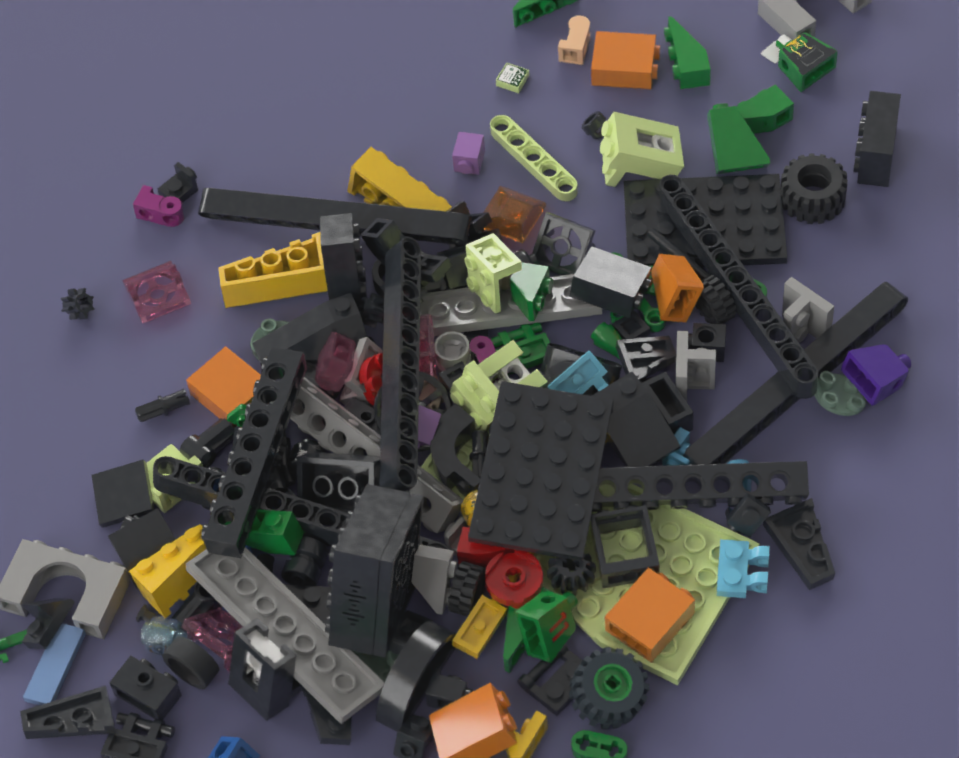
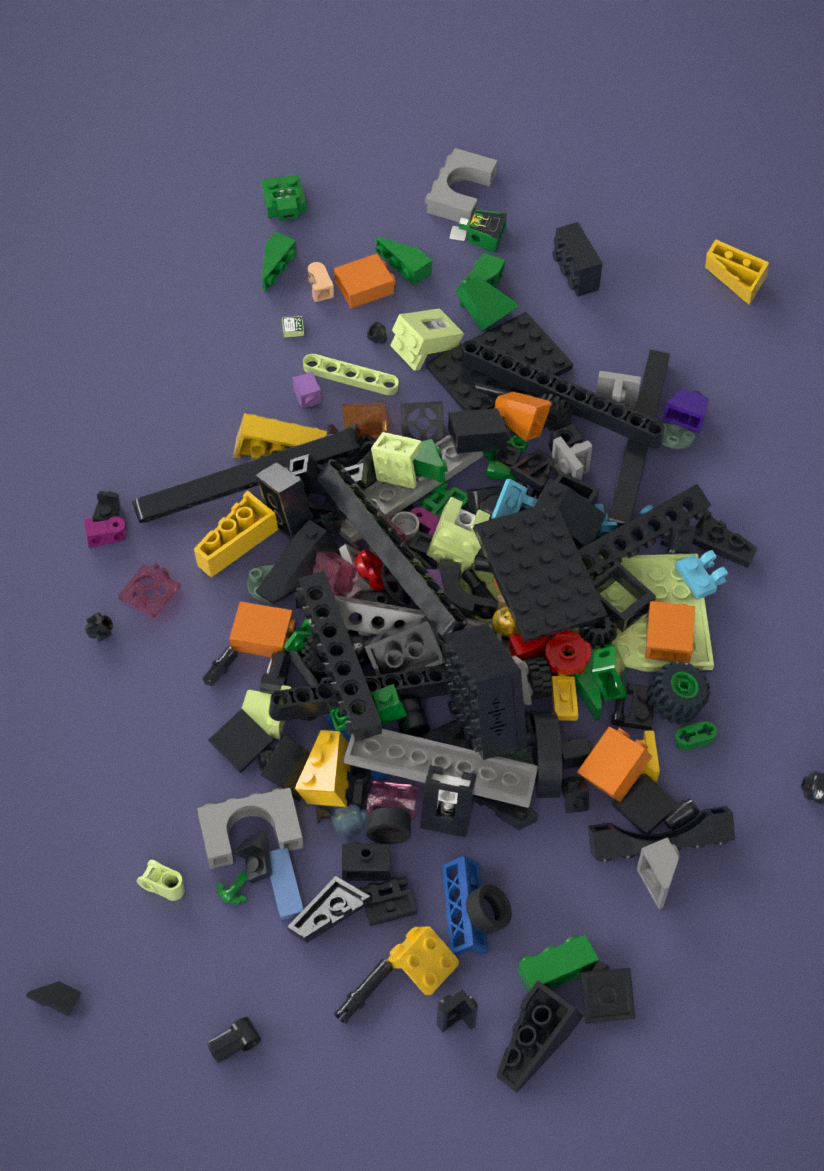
camera: 40 degrees left, 0 degrees up
(815, 172) = (558, 298): black tyre -> none

